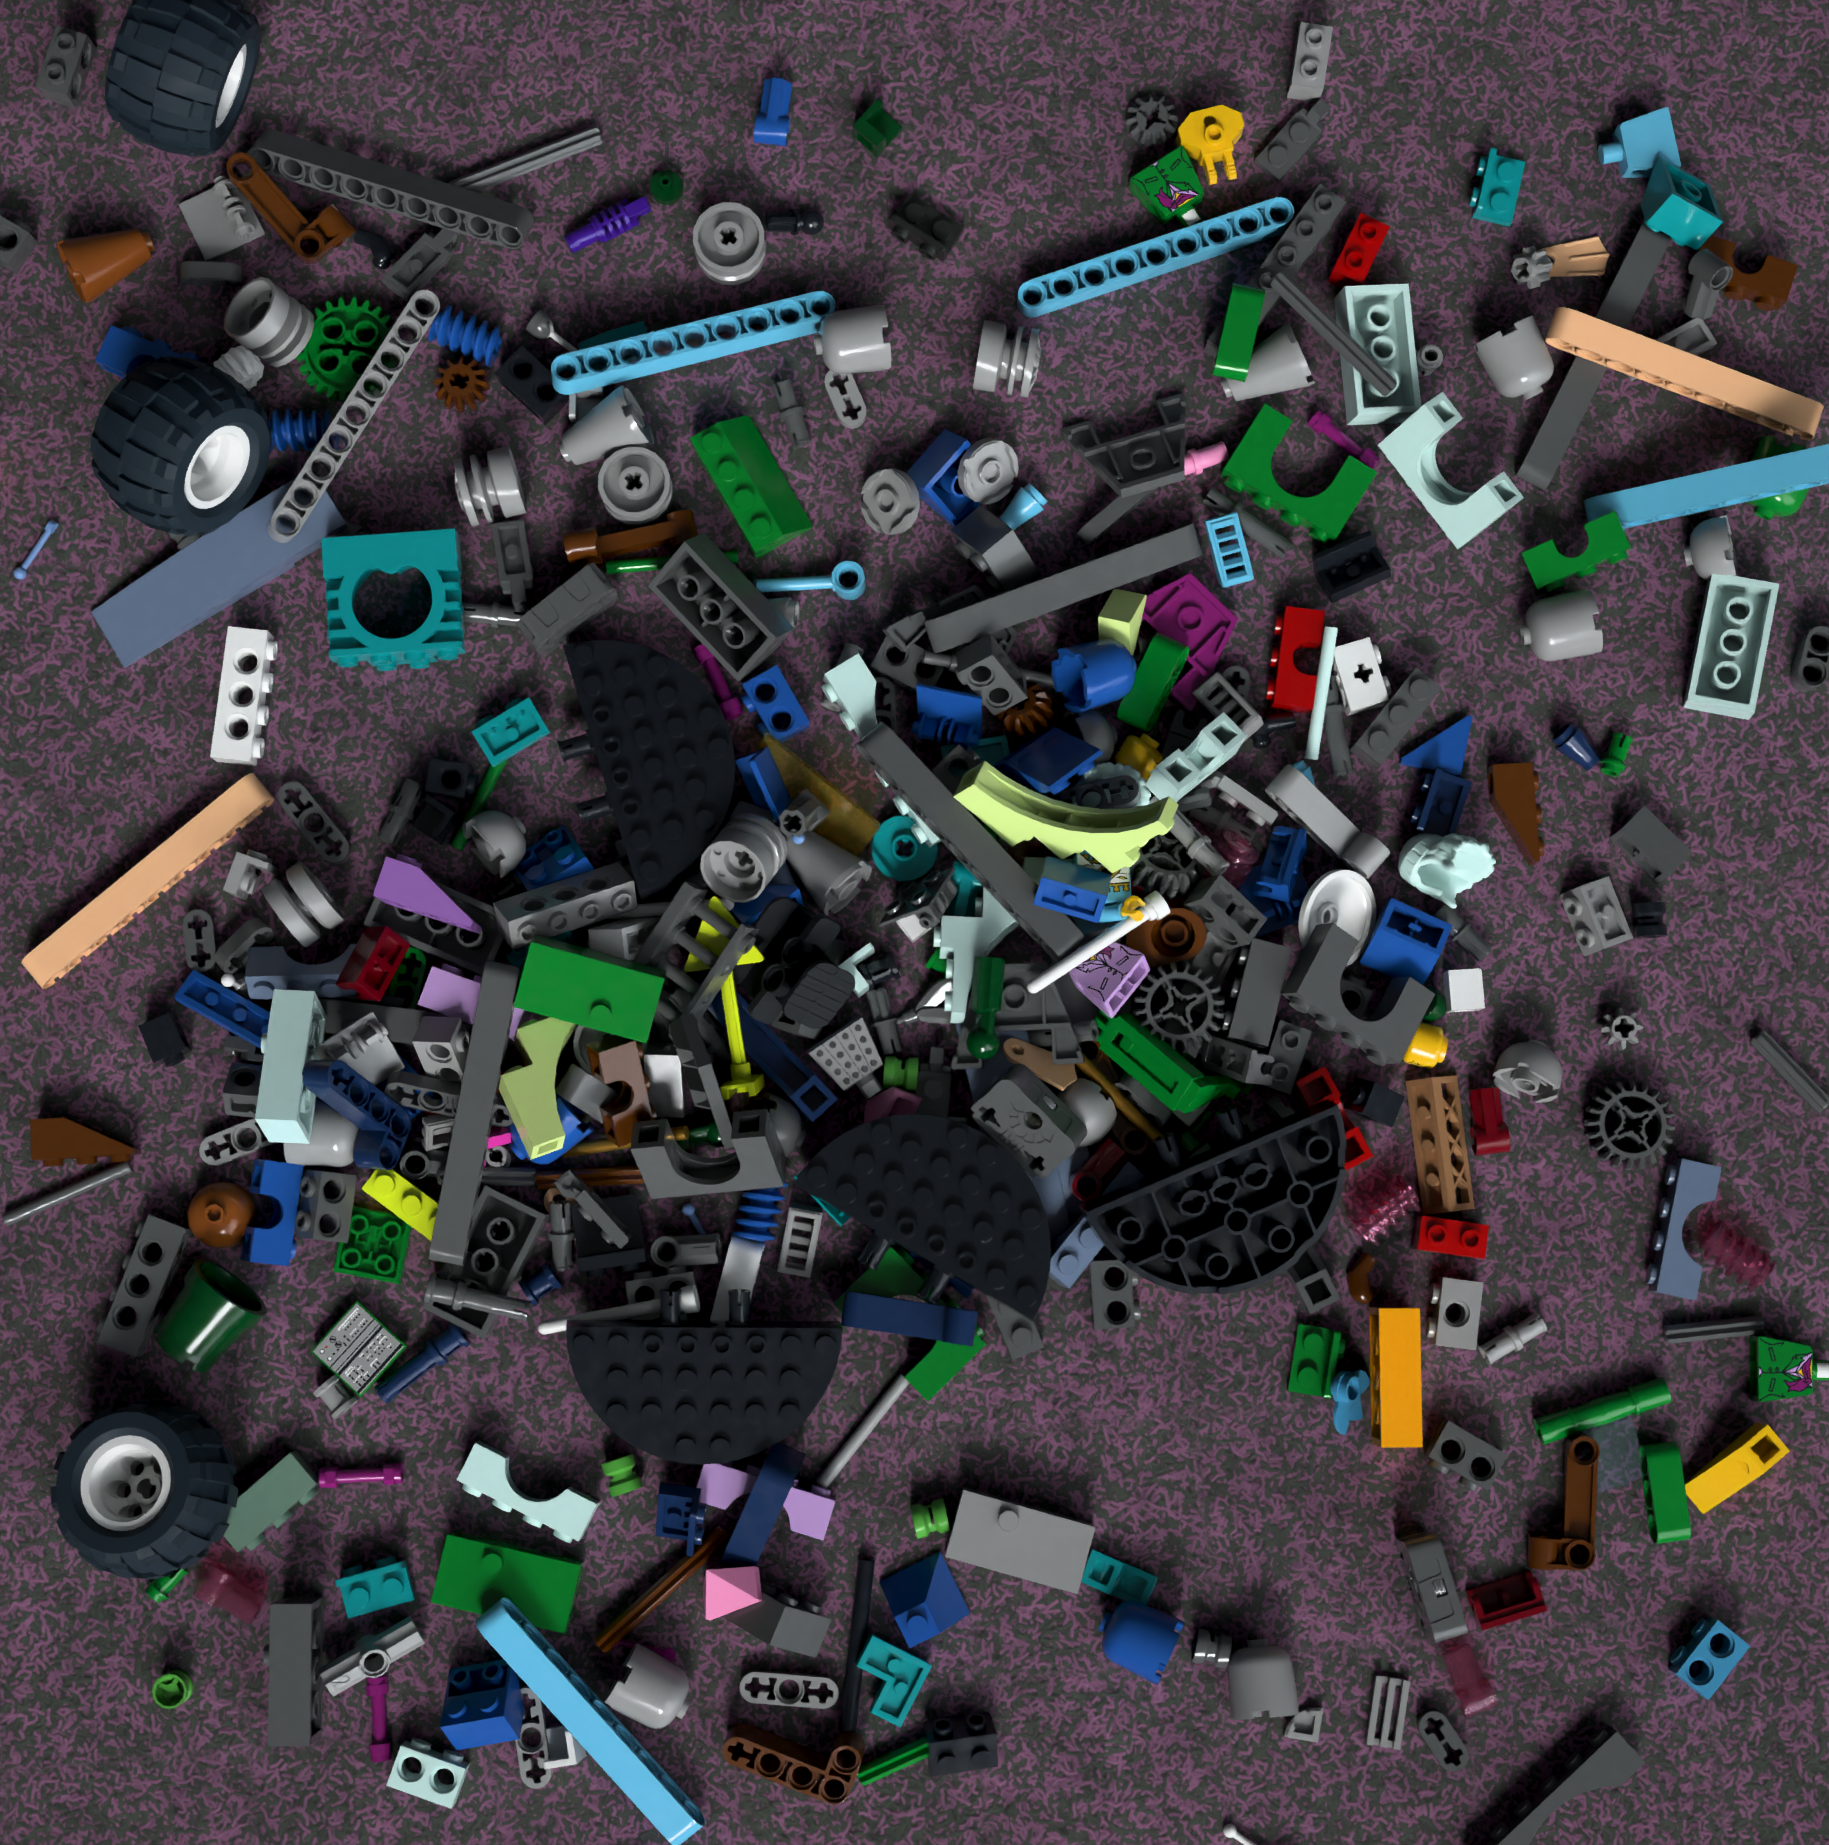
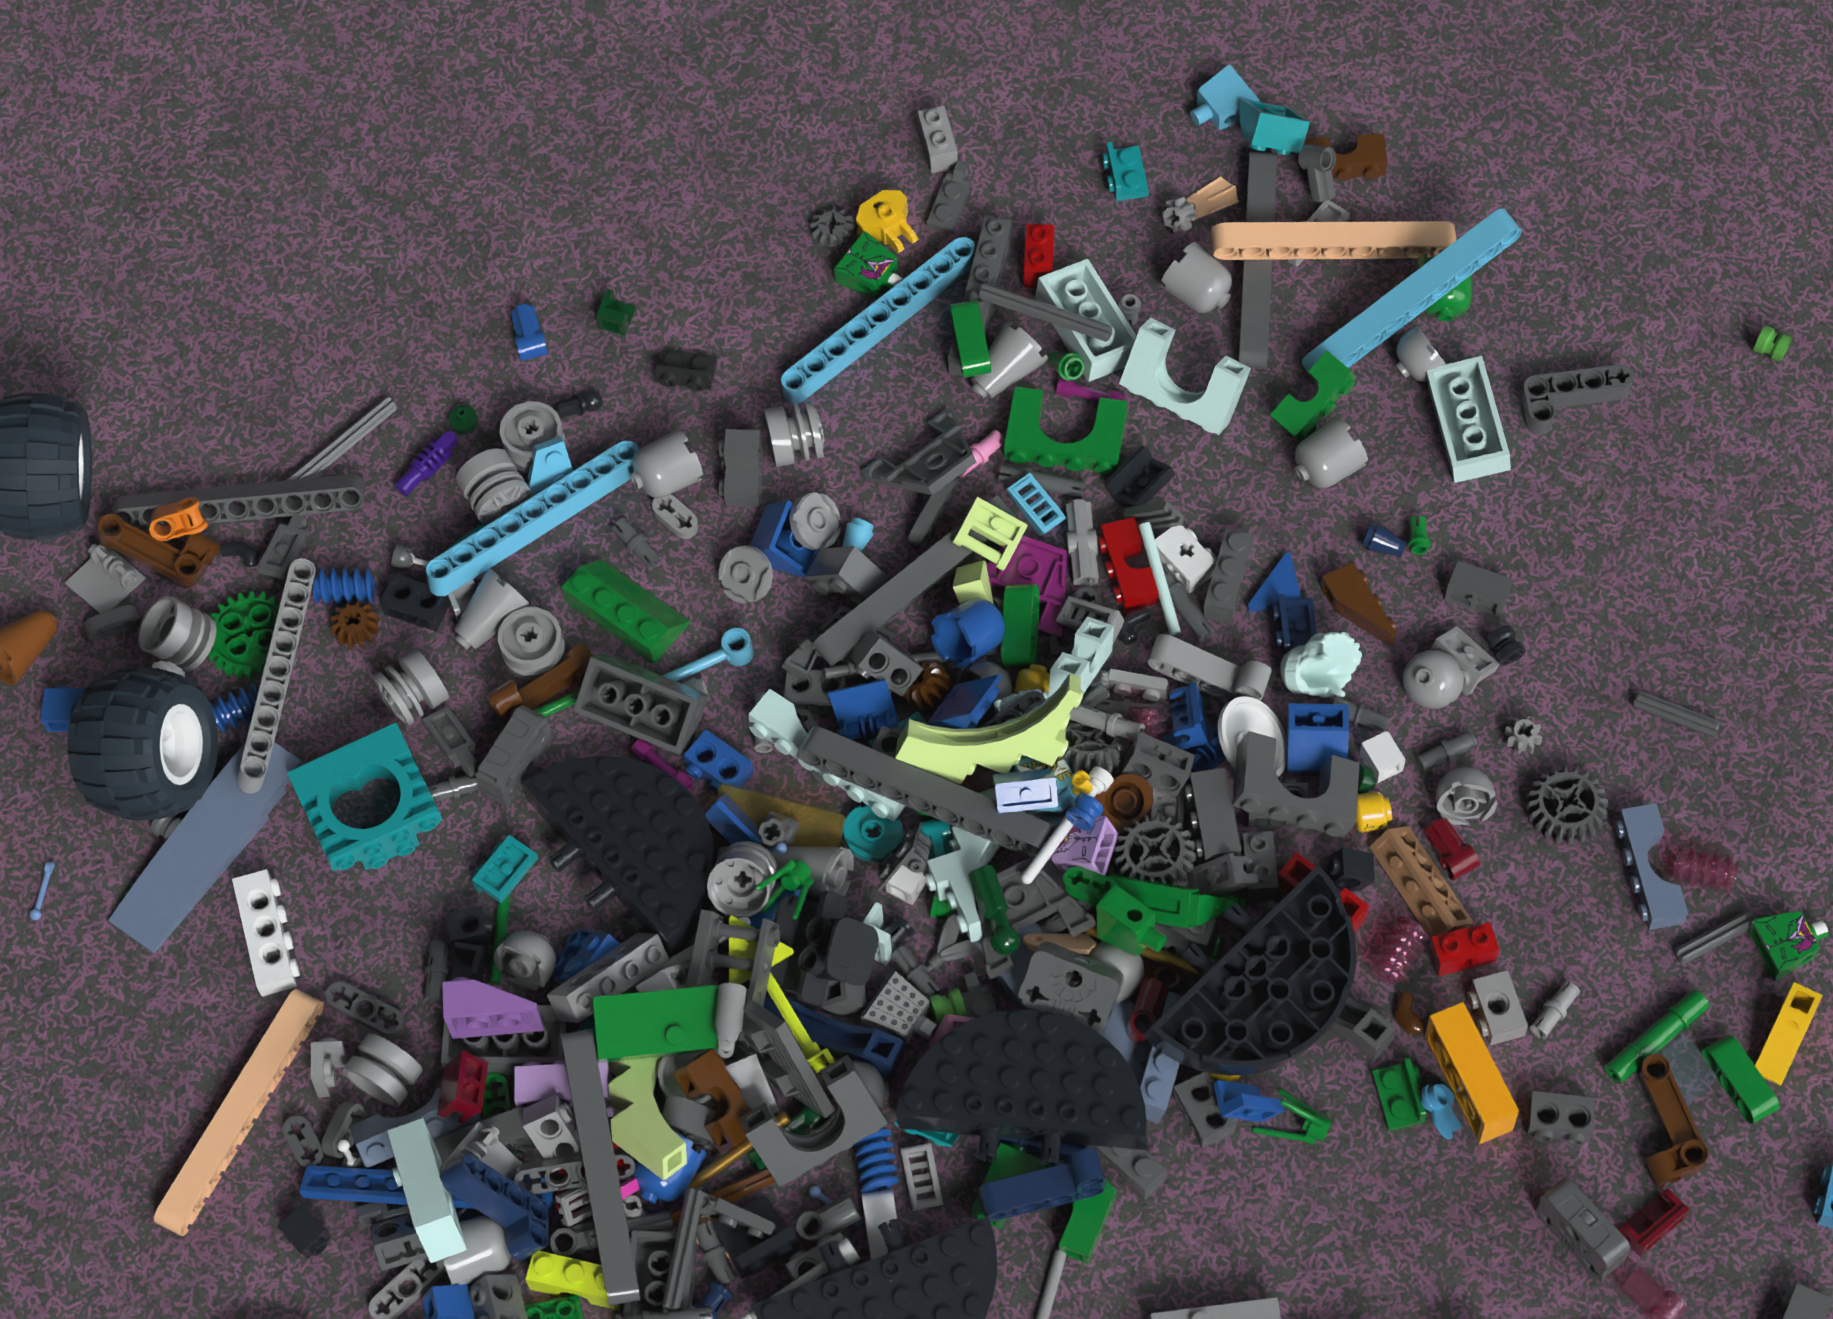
camera: 15 degrees left, 20 degrees down
(315, 185) = (183, 519): none -> orange piece
(526, 1230) = (682, 1250): none -> dark grey axle
(663, 1018) = (729, 1016): none -> light grey piece
(664, 286) = (492, 484): none -> light grey wheel
(730, 291) = (548, 465): none -> medium azure wing
(796, 878) = (795, 876): none -> green plant
(940, 369) = (743, 467): none -> dark grey brick
(1089, 1029) = (1089, 888): none -> green beam
(1112, 1071) = (1127, 923): none -> green torso
(1122, 942) = (1084, 812): none -> blue wheel
(1153, 1305) = (1245, 1102): none -> blue panel
(1173, 564) = (993, 525): none -> yellowish green plate
(1215, 1356) = (1315, 1125): none -> green plant
(1258, 613) = (1082, 543): none -> light grey piece
(1332, 399) = (1068, 365): none -> green cone
(1346, 620) = (1159, 515): none -> dark grey tile
(1533, 1011) = (1447, 751): none -> dark grey pin
(1555, 928) = (1433, 679): none -> light grey cylinder

